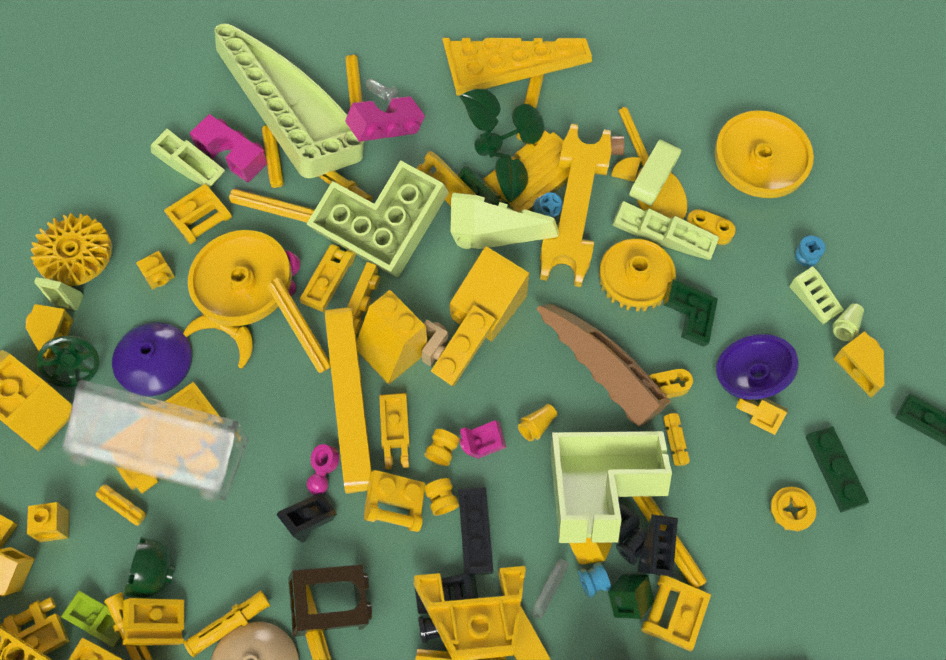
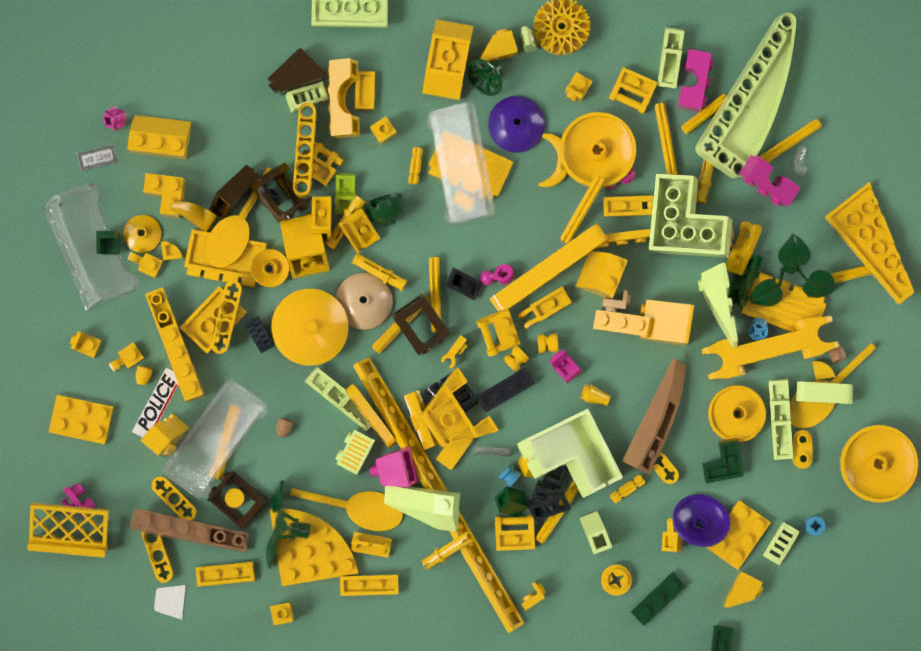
camera: 65 degrees right, 20 degrees up
(290, 557) = (435, 299): none -> yellow axle
(387, 565) = (458, 347): none -> yellow plate
(722, 503) = (595, 532): none -> yellowish green slope
(782, 633) = (531, 599): none -> yellow bracket
(787, 322) = (744, 533): none -> yellow plate
(849, 323) = (769, 571): yellowish green cone -> none

